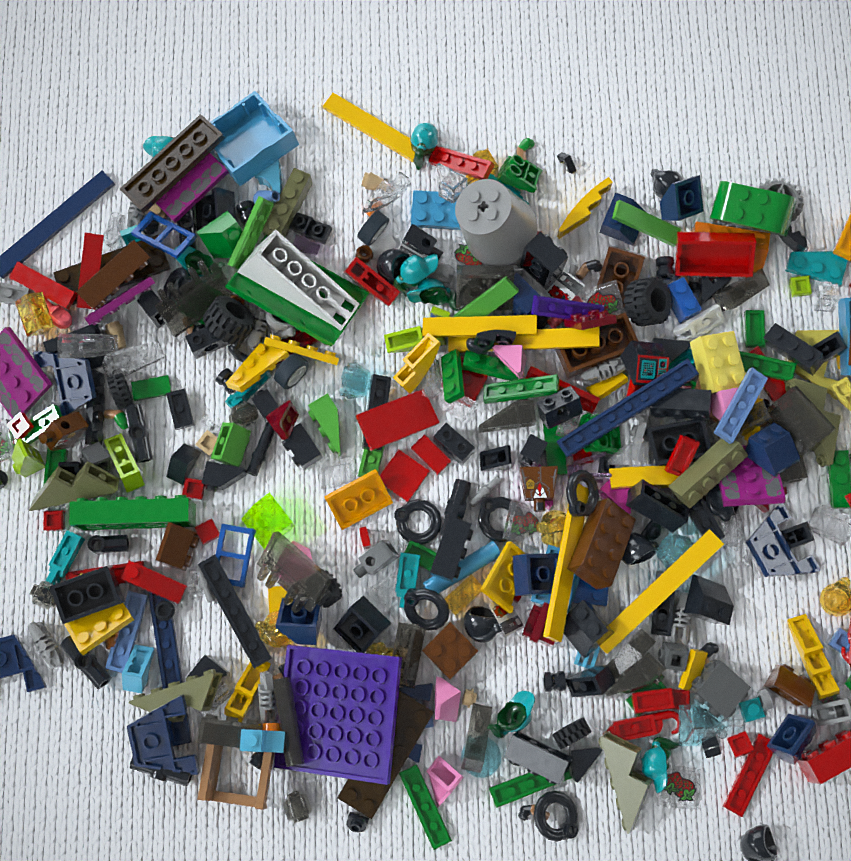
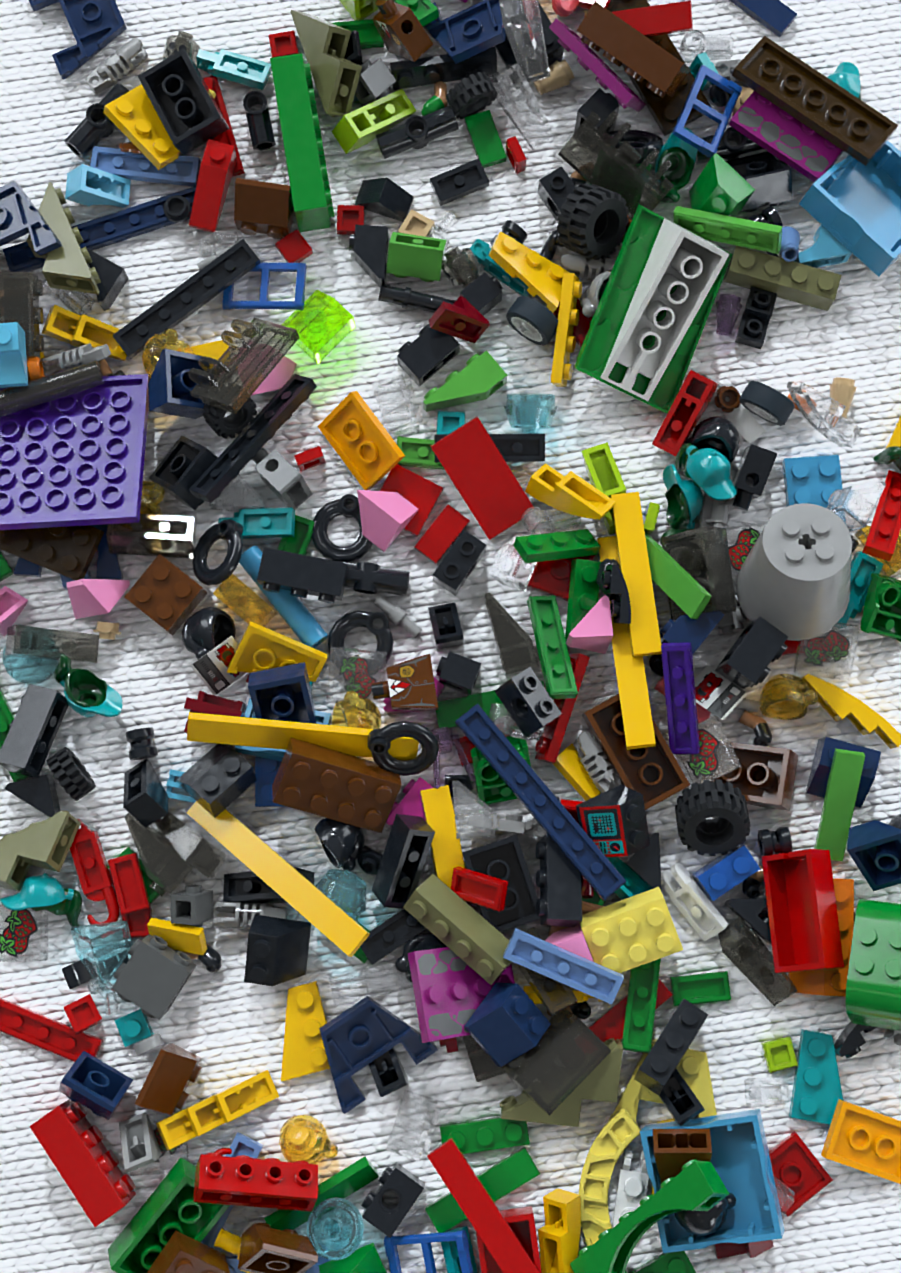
camera: 80 degrees right, 5 degrees up
(168, 368) = (515, 155): none -> red tile
(346, 574) = (252, 438): none -> black plate
(354, 438) = (449, 421): none -> teal plate
(415, 489) = (384, 516): none -> bright pink slope
(547, 214) = (829, 654): none -> clear tile
(573, 243) = (786, 697): none -> clear yellow piece
(591, 320) = (663, 729): dark red plate -> none
(764, 590) = (302, 1038): none -> yellow wing

